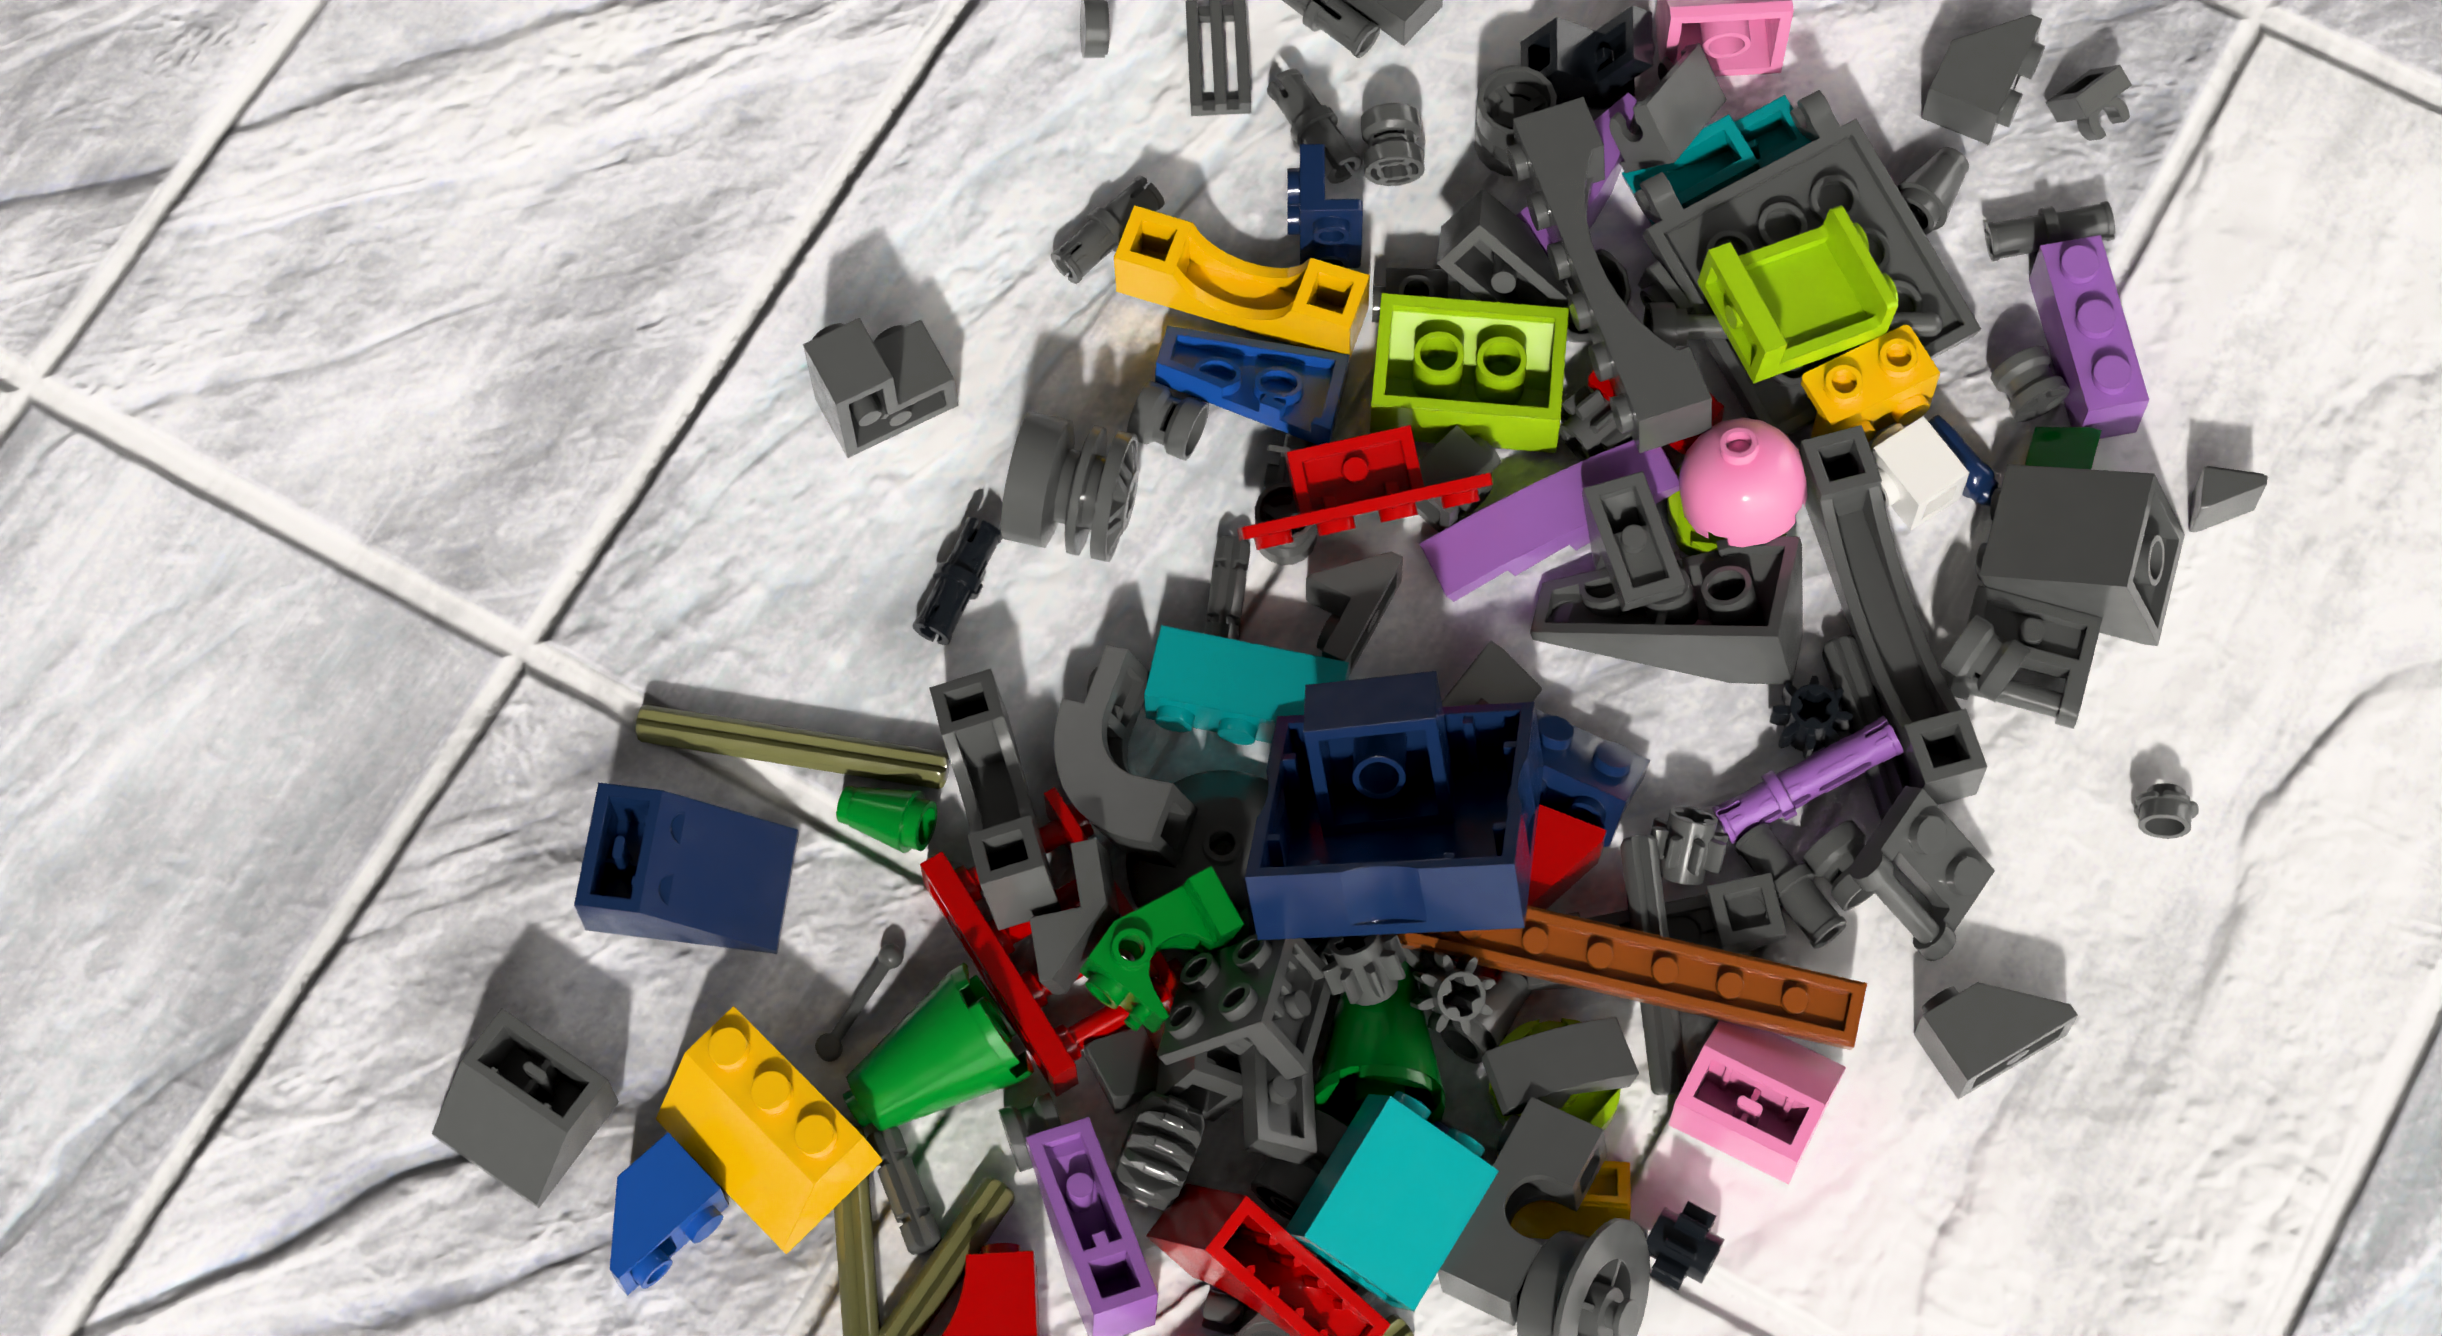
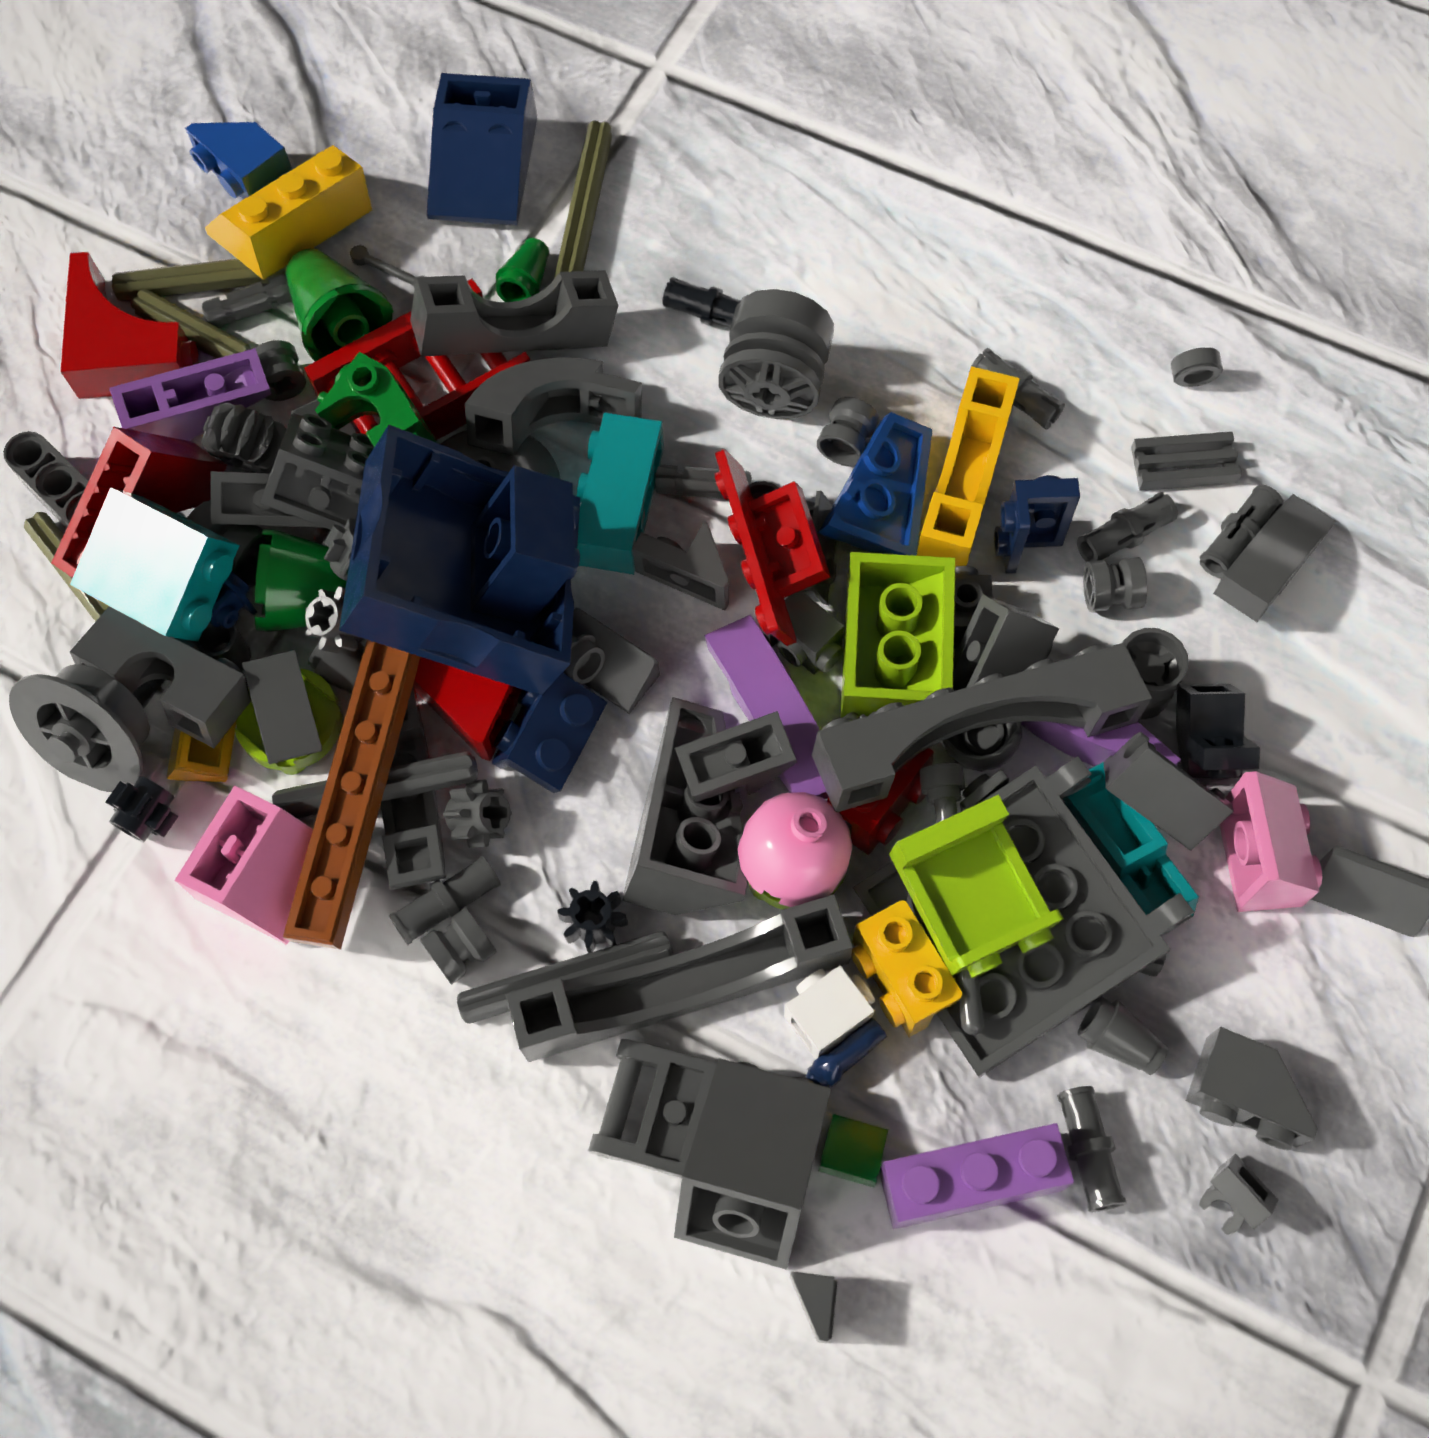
camera: 90 degrees right, 0 degrees up
(522, 1108) = (323, 81): dark grey slope -> none
(877, 386) = (858, 231): dark grey brick -> none
(1069, 936) = (424, 376): dark grey slope -> none
(1797, 785) = (525, 894): medium lavender pin -> none
(1934, 859) = (455, 1008): dark grey plate -> none
(1983, 656) = (633, 1057): dark grey wheel -> none
(1987, 1032) = (301, 1058): dark grey slope -> none
(2030, 383) = (925, 1120): dark grey wheel -> none
(2165, 811) = (504, 1231): dark grey plate -> none

